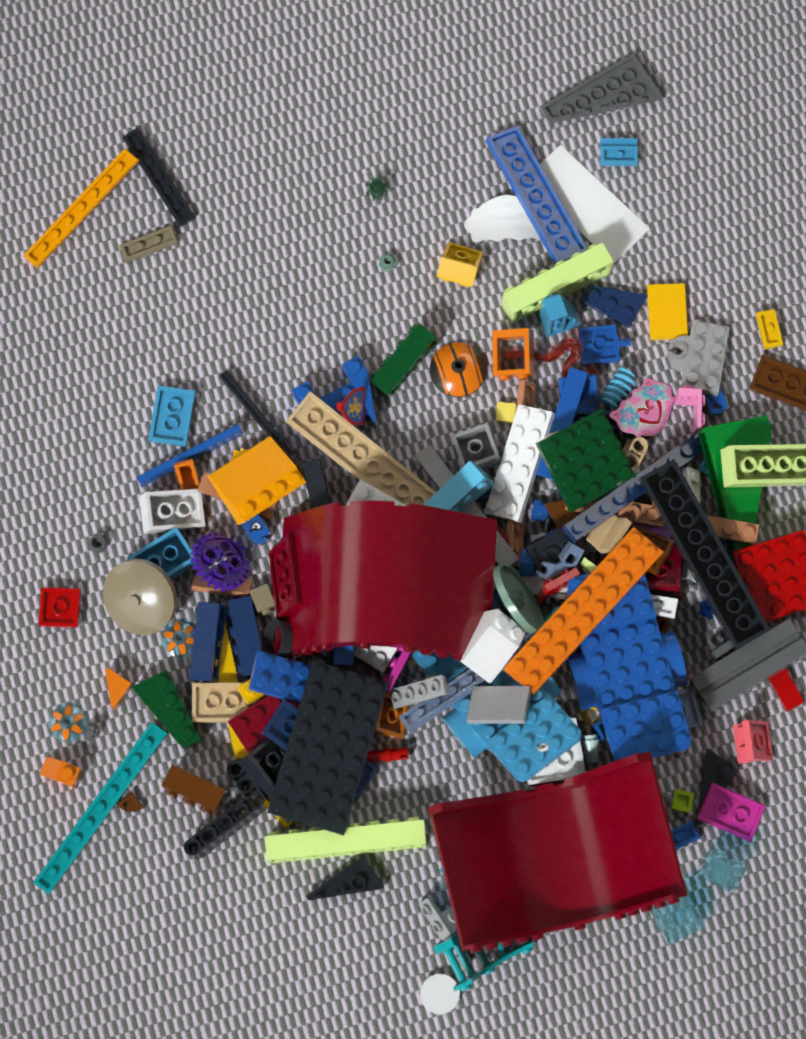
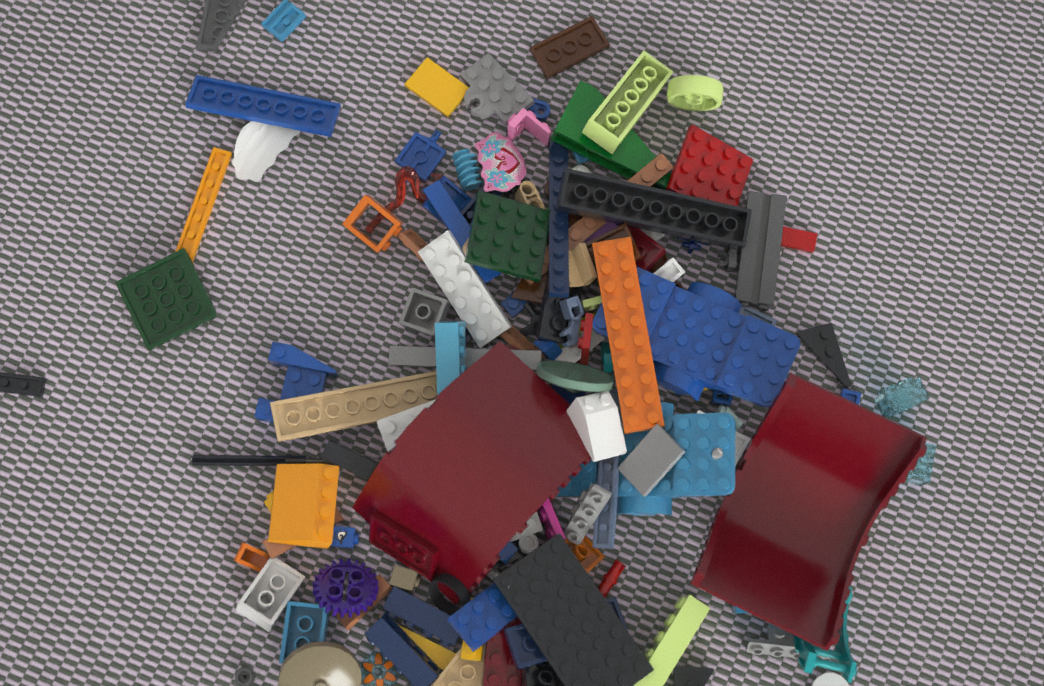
camera: 55 degrees left, 0 degrees up
(148, 244) = (33, 433): dark tan tile -> none
(172, 416) = (191, 529): dark azure plate -> none
(193, 453) = (237, 539): blue tile -> none
(326, 252) = (166, 299): none -> dark green plate
(353, 406) = (311, 378): shield -> none
(364, 668) = (528, 543): none -> white tile
(380, 186) = (153, 223): clear green gear -> none
(388, 257) = (216, 254): sand green plate -> none
(404, 359) = (306, 309): dark green wedge -> none
(407, 222) = (204, 201): none -> light orange tile
(456, 381) = (348, 288): orange dish -> none
(459, 264) = (267, 206): yellow slope -> none
(505, 412) = (413, 268): light yellow tile -> none
(557, 315) = (371, 168): dark azure wedge -> none
(562, 279) = (346, 146): yellowish green brick -> none
(591, 205) = (308, 73): white sticker -> none
(614, 303) = (397, 120): dark blue wing -> none
(682, 801) = (824, 380): lime plate -> none
(730, 812) = (859, 354): dark pink tile -> none
(752, 741) = (818, 295): coral bracket -> none
(769, 329) = (514, 27): yellow plate -> none

